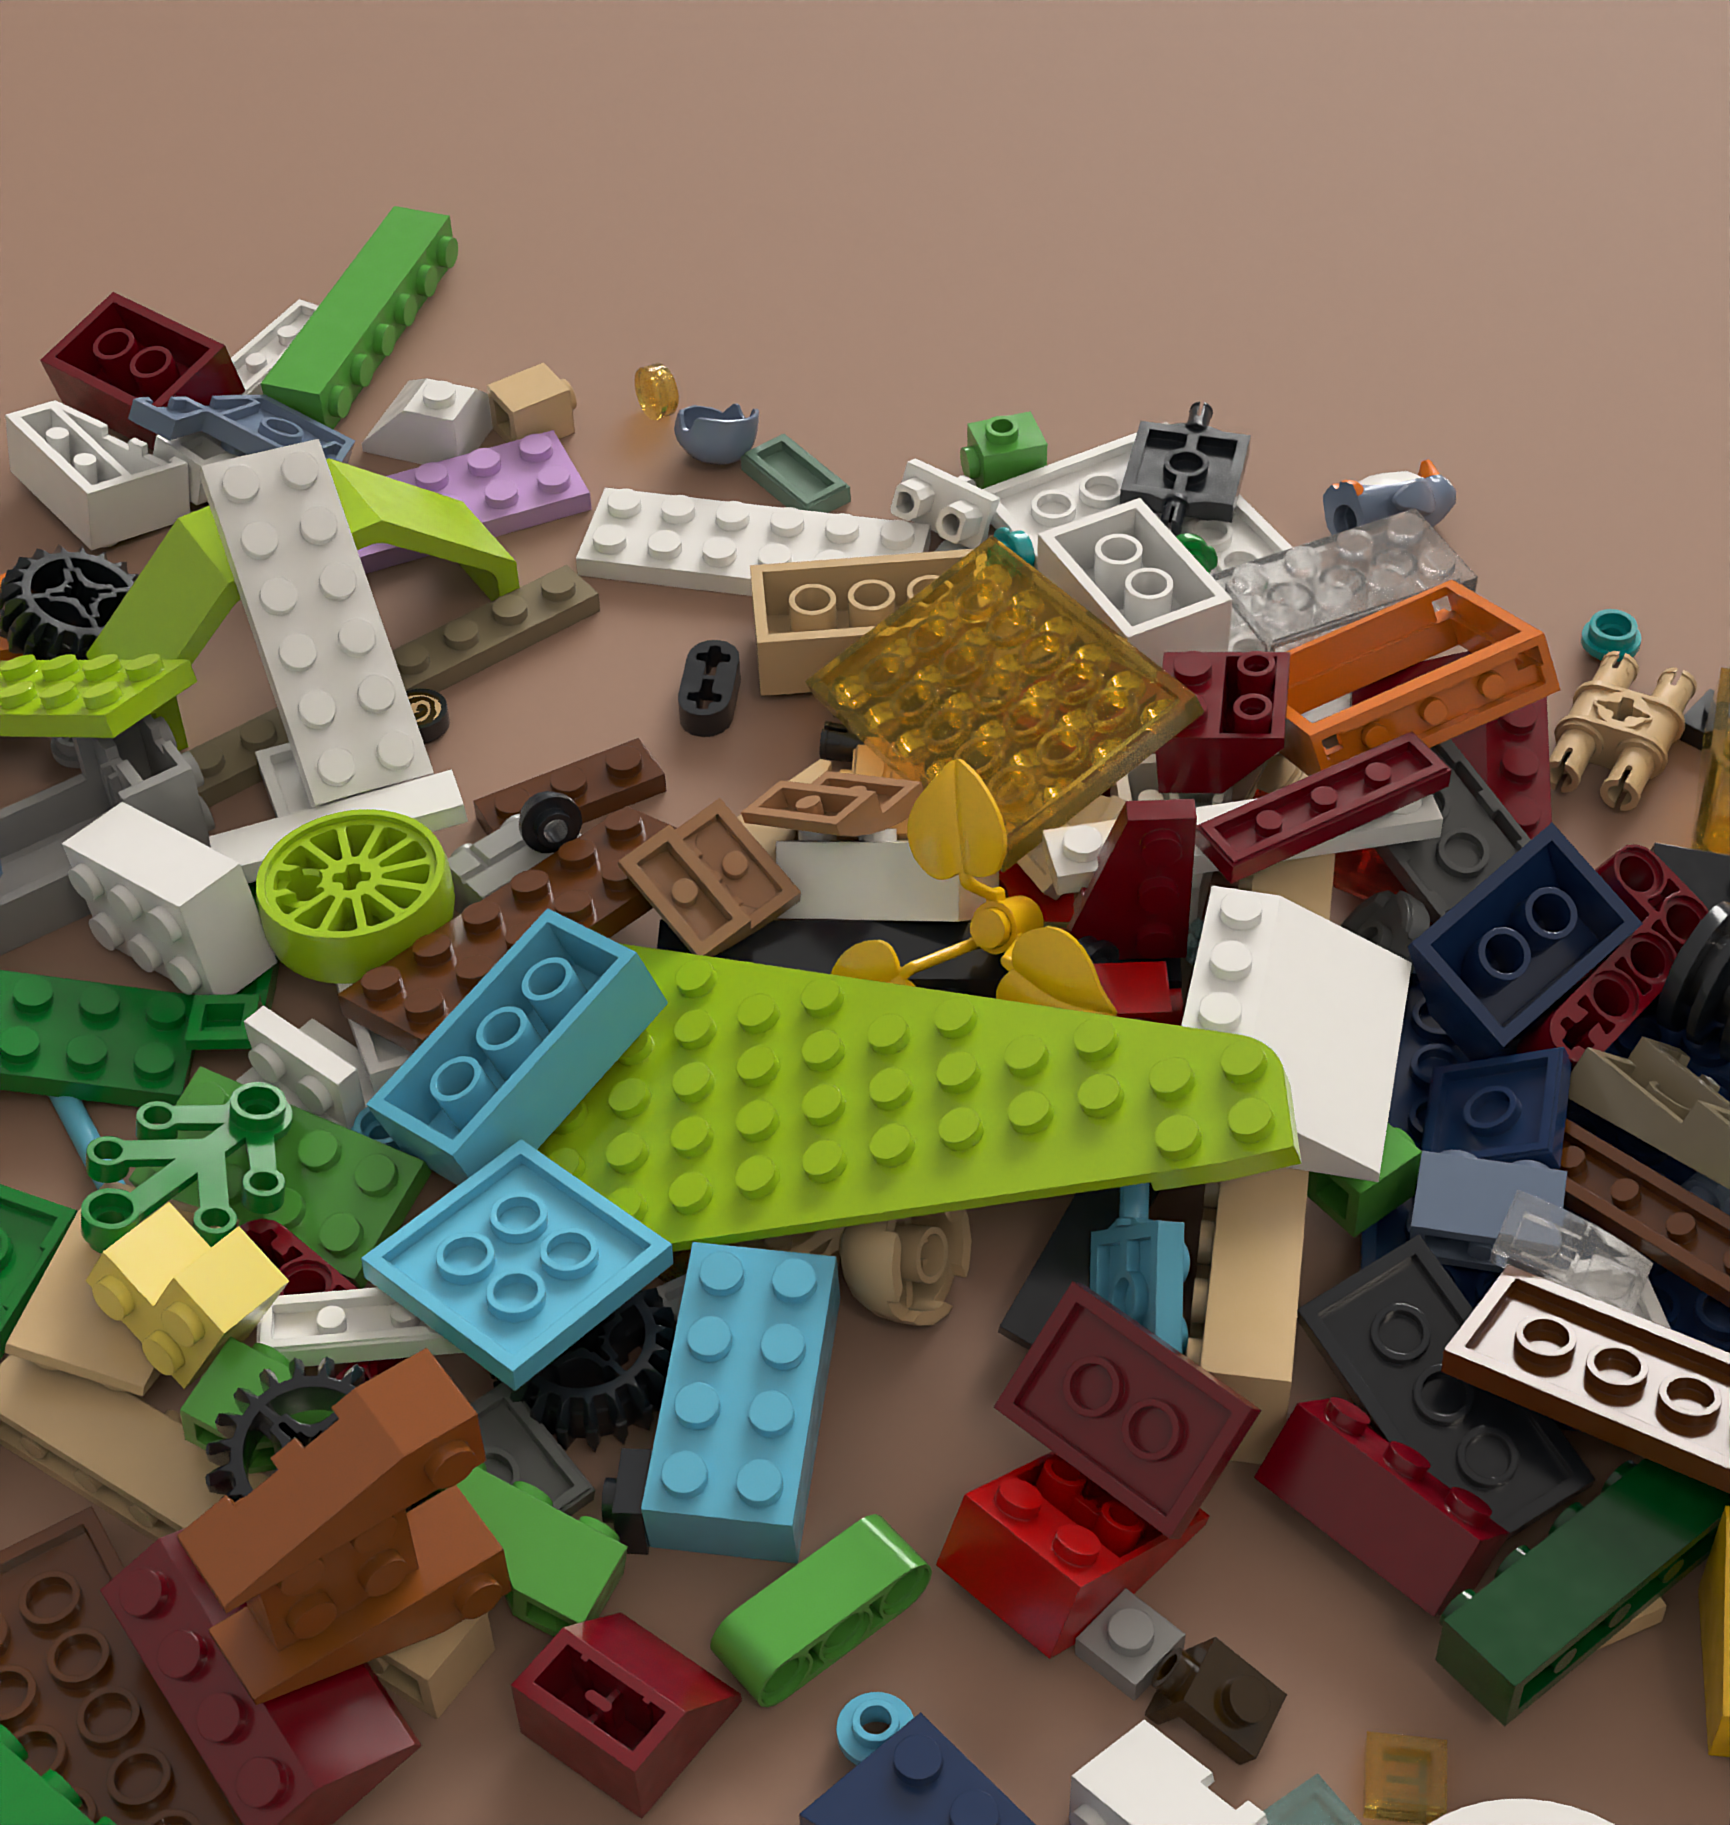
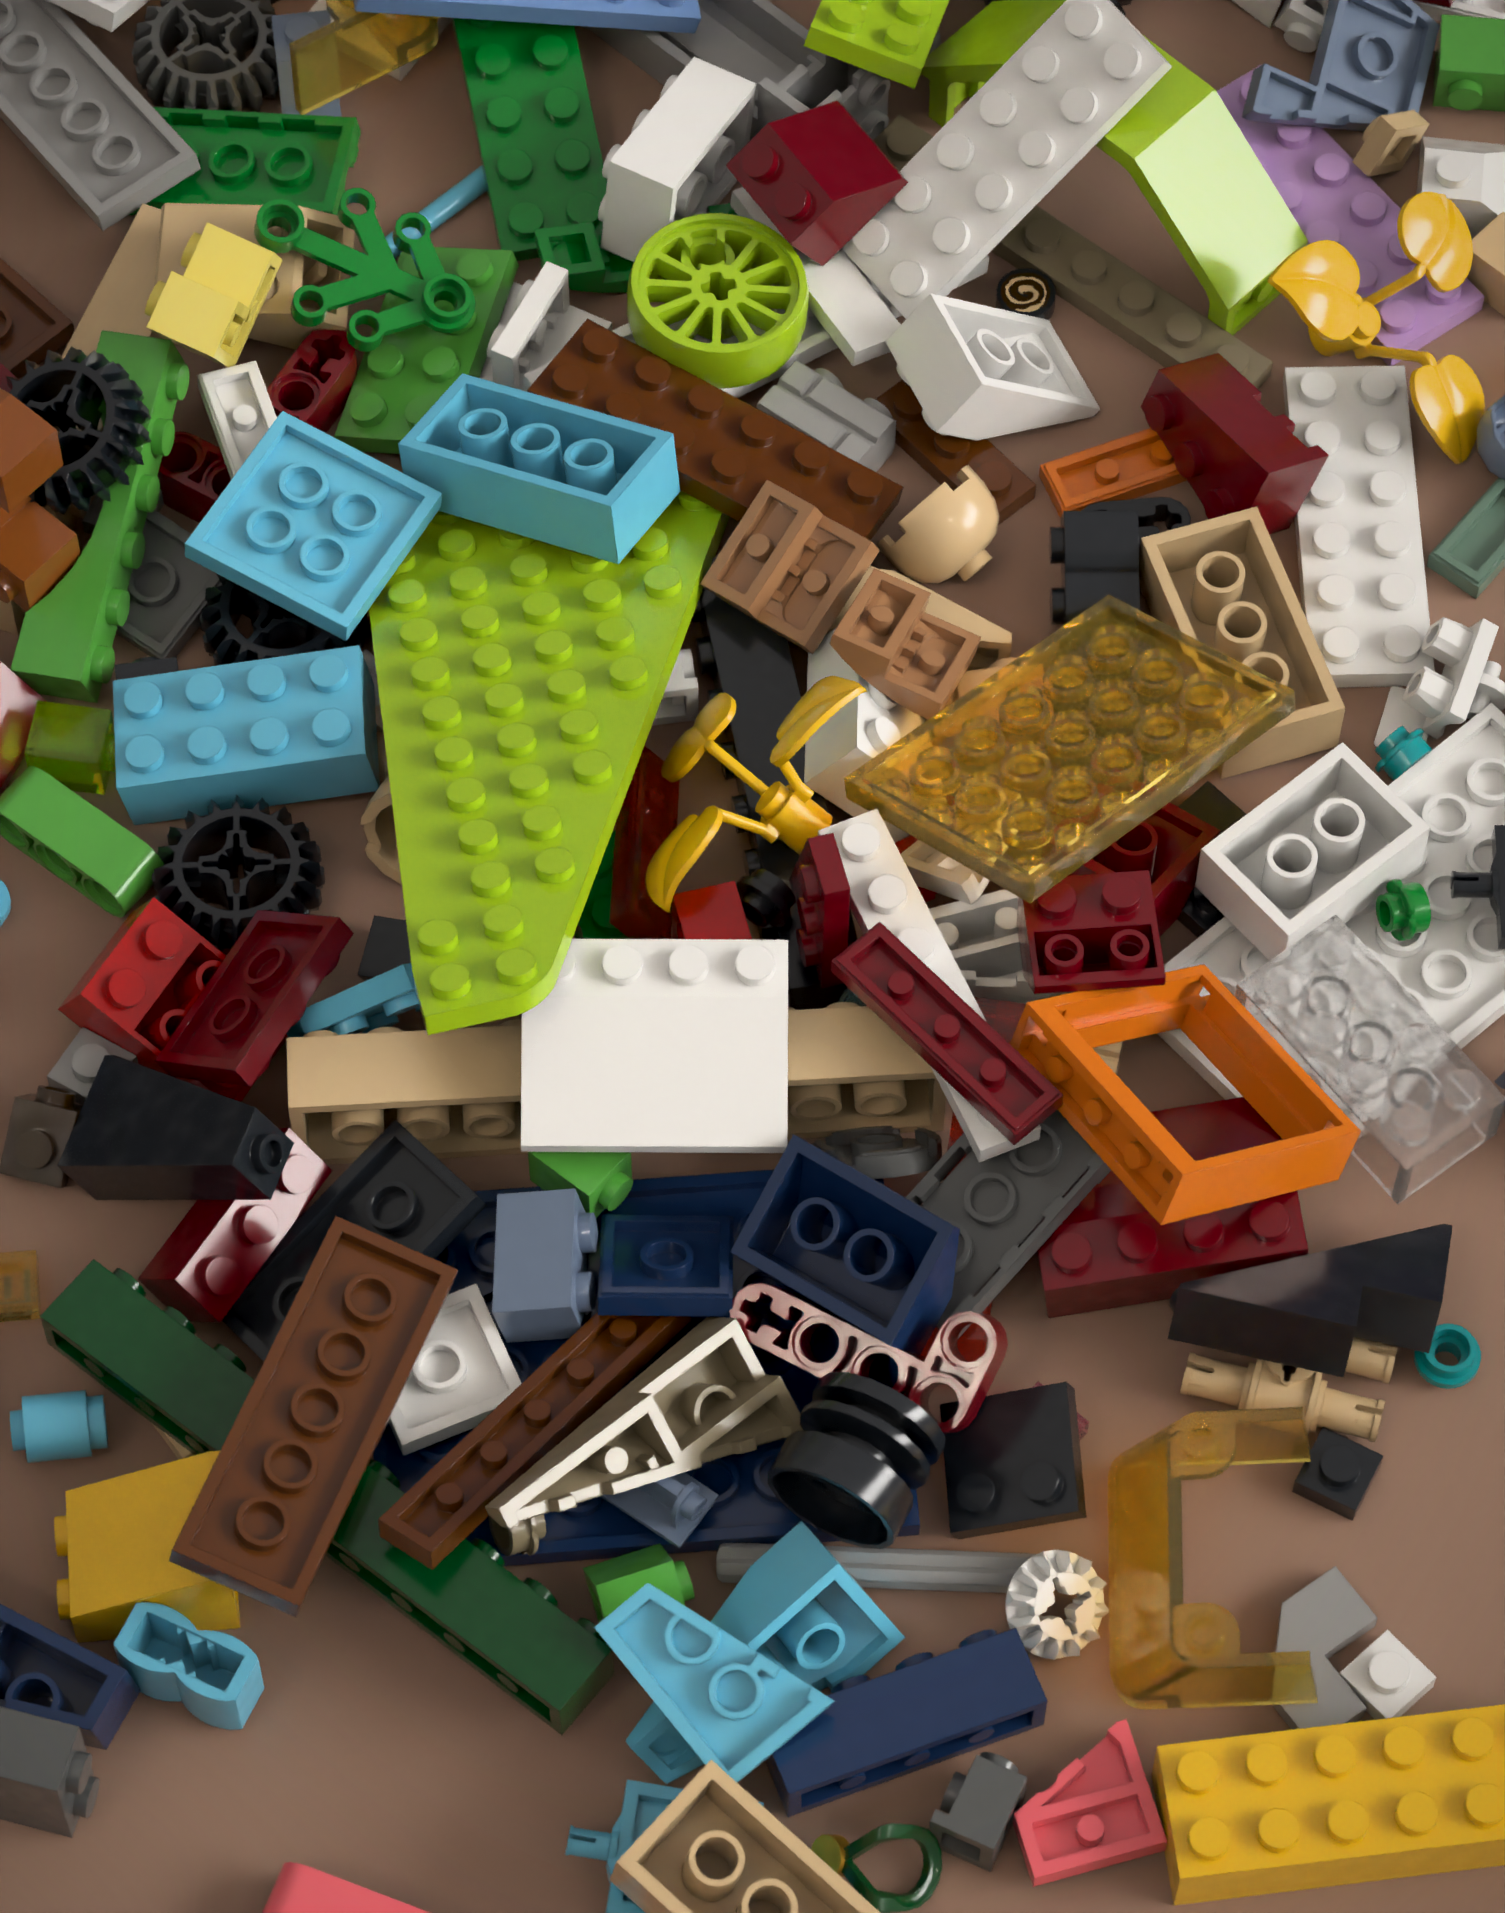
camera: 75 degrees right, 15 degrees up
(263, 776) = (817, 178): none -> dark red slope
(371, 445) = (1389, 142): none -> tan plate
(513, 739) = (987, 370): none -> white slope
(543, 809) = (844, 423): black plate -> none
(557, 499) = (1323, 286): none -> yellow plant
(636, 678) = (1110, 472): none -> orange tile
(664, 587) = (1229, 442): none -> dark red wedge
(673, 778) = (946, 532): none -> tan cylinder
(692, 1589) = (73, 745): none -> clear neon green brick
(763, 700) = (1096, 559): none -> black brick
(881, 1429) = (207, 858): none -> black gear
(1282, 1529) = (170, 1140): none -> black slope
(1570, 1252) = (480, 1325): clear slope -> none
(1599, 657) = (1316, 1303): none -> black slope
(1611, 1732) = (59, 1426): none -> medium azure brick

